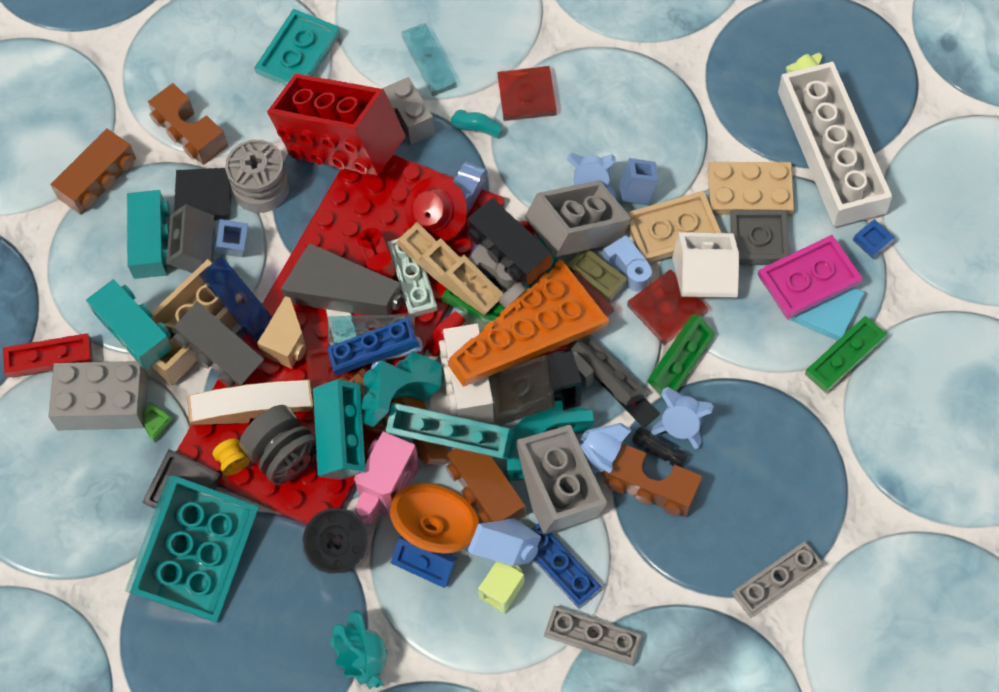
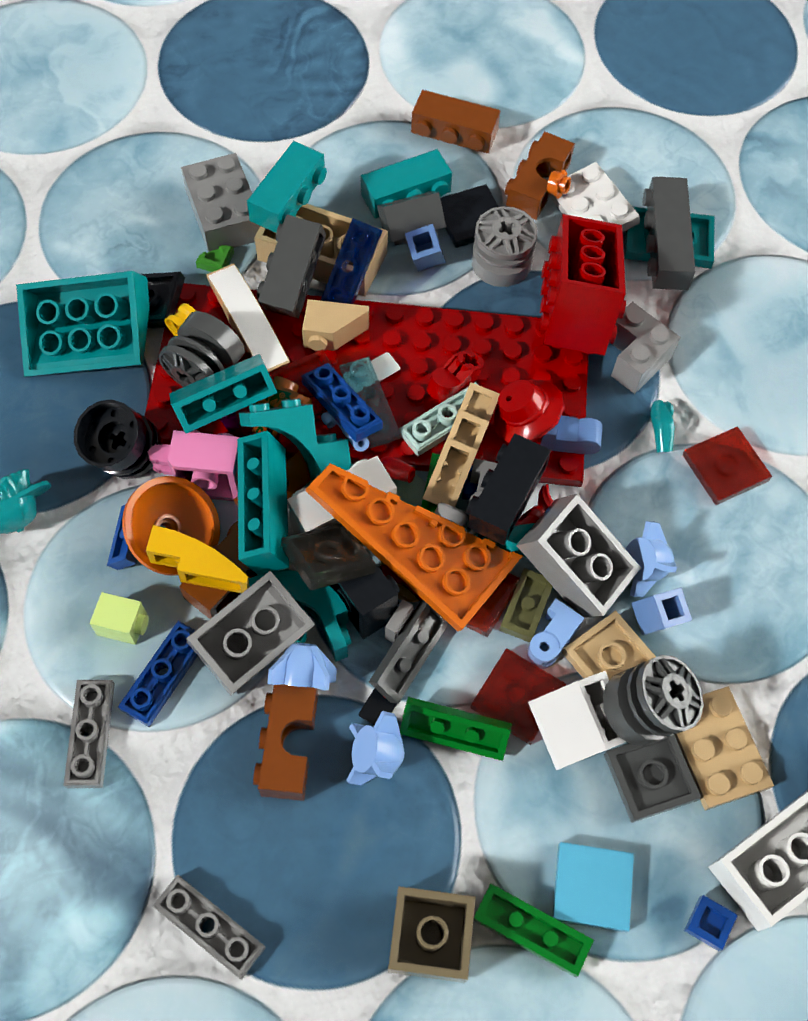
camera: 65 degrees right, 0 degrees up
(42, 355) = (249, 149): red plate -> none
(212, 109) = (558, 183): none -> orange plate
(238, 93) = (596, 198): none -> white plate
(302, 45) = (669, 233): none -> dark grey brick
(340, 285) = (406, 350): dark grey slope -> none
(429, 59) = (721, 358): clear light blue tile -> none
(483, 499) = (195, 561): none -> yellow slope
(505, 542) = (160, 602): light blue slope -> none
(659, 447) = (334, 739): black axle -> none
(715, 206) = (653, 700): none -> dark grey wheel
(809, 277) = (618, 852): dark pink plate -> none
(832, 418) = (432, 934): none -> dark tan brick

